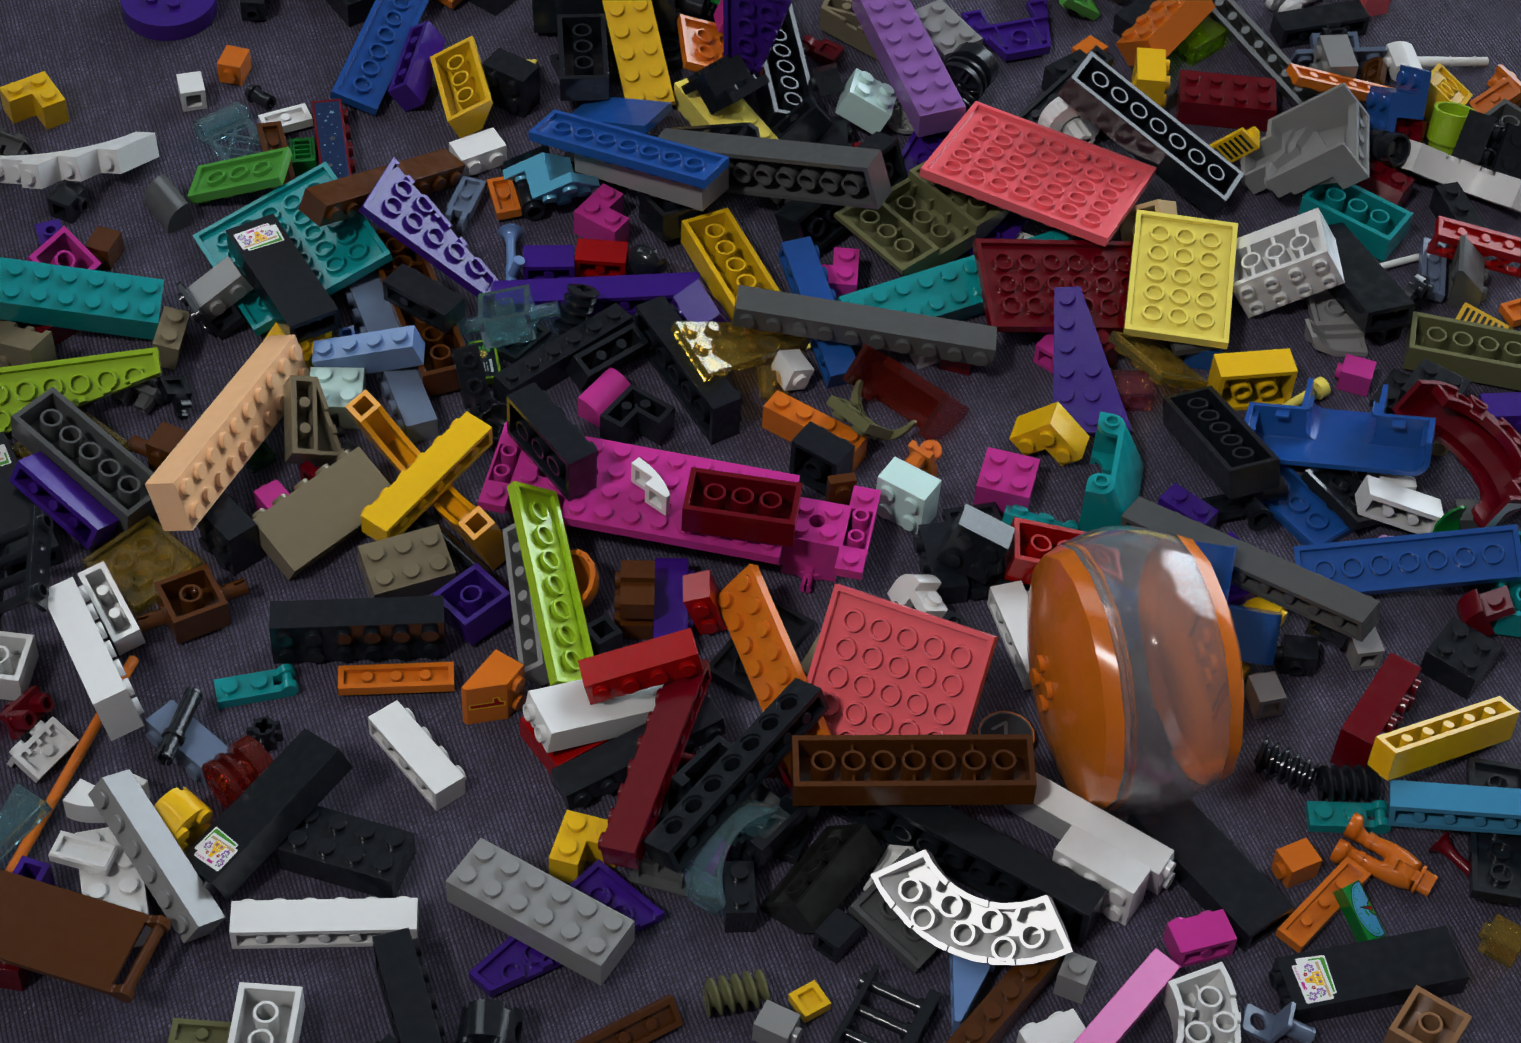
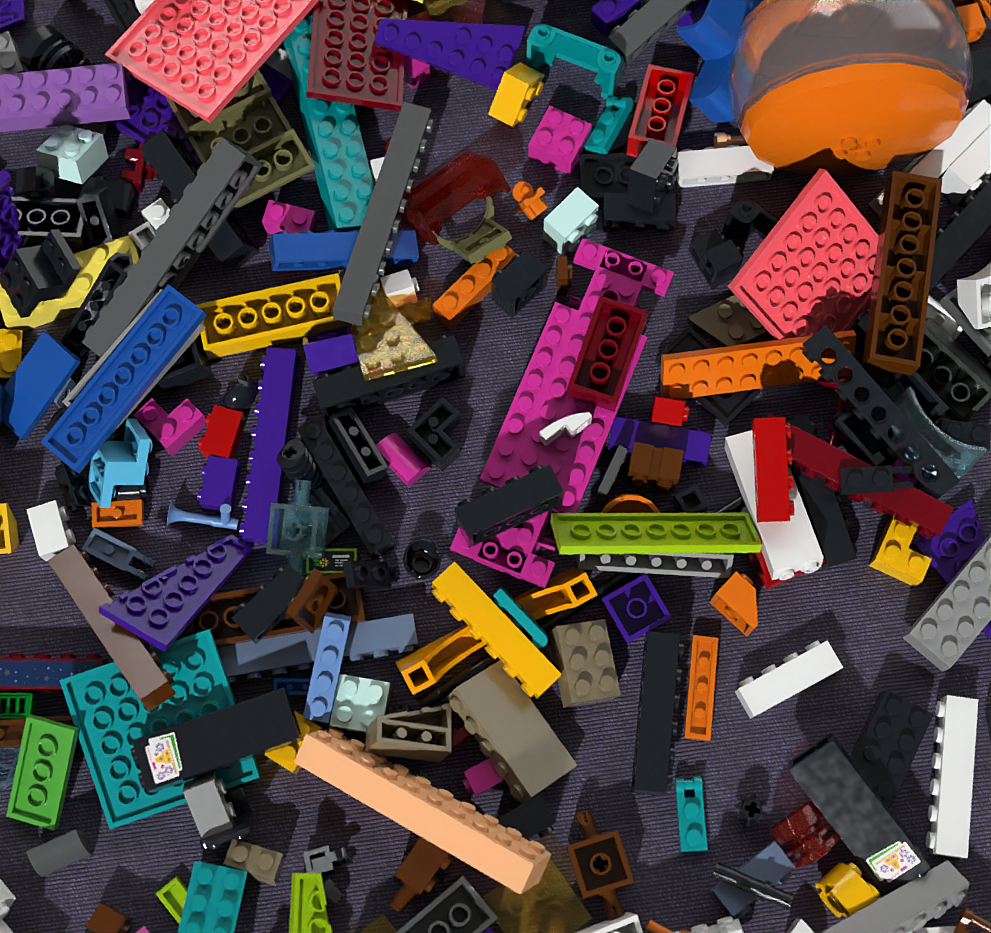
camera: 75 degrees left, 25 degrees up
(432, 317) = (312, 601): none -> reddish brown plate
(445, 496) = (520, 617): none -> teal plate
(609, 553) = (611, 475): none -> dark grey tile
(649, 763) = (872, 479): none -> black hinge
(920, 592) = (675, 233): white brick -> none

